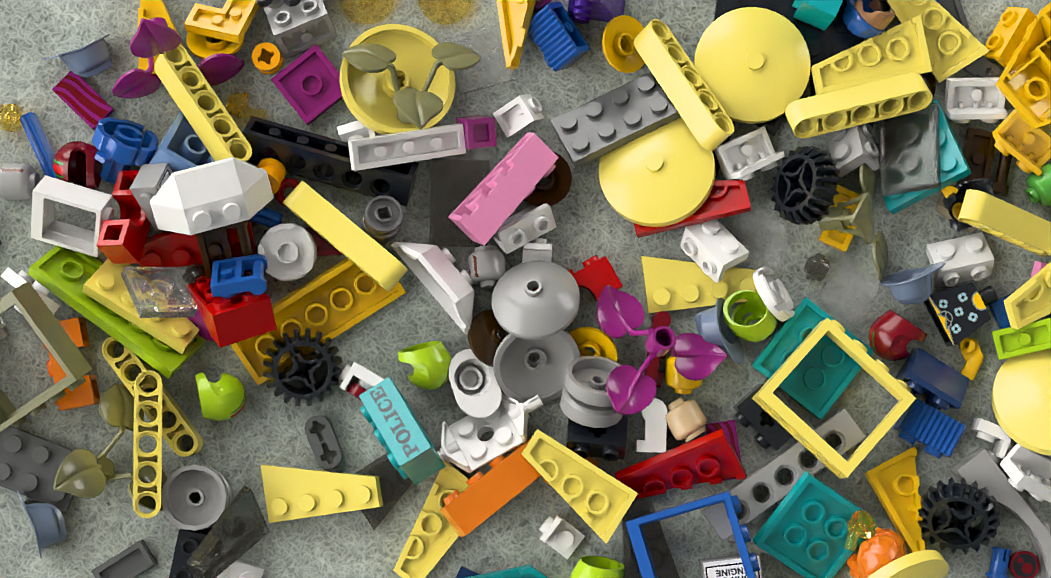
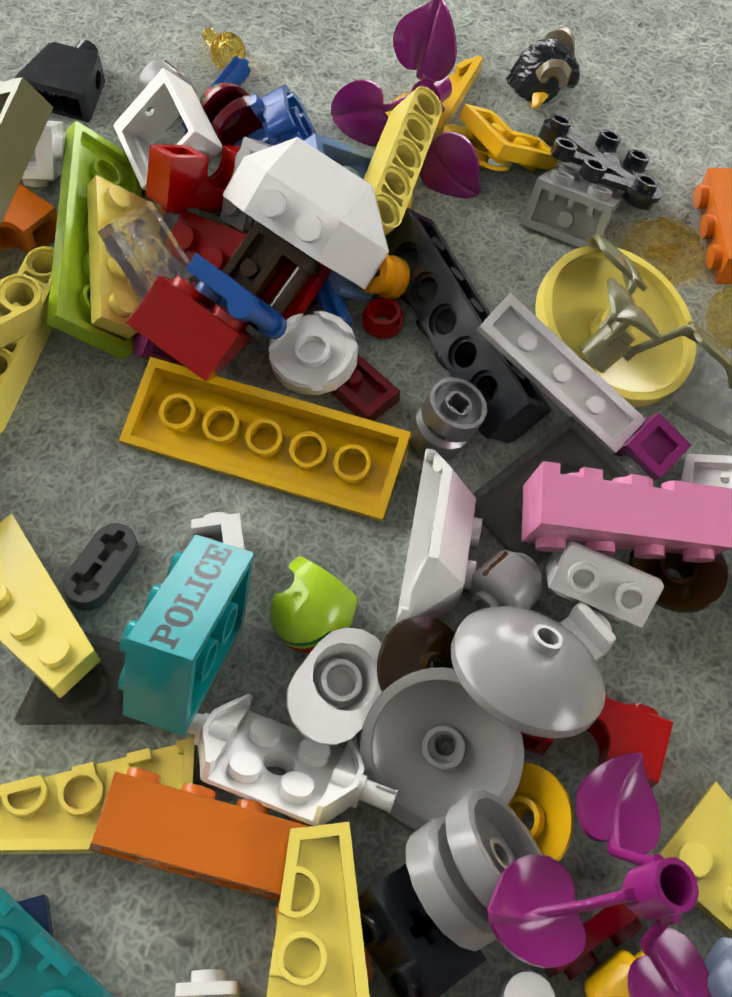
camera: 50 degrees right, 25 degrees down
(83, 99) = (307, 85): tile -> none
(88, 59) = (347, 56): sand blue piece -> none
(221, 399) = (67, 402): lime helmet -> none
(238, 105) = (434, 209): clear yellow plate -> none
(270, 63) = (504, 204): light orange wheel -> none
(291, 373) = (193, 428): black gear -> none
(310, 84) = (517, 257): magenta plate -> none
(345, 236) = (390, 393): light yellow beam -> none

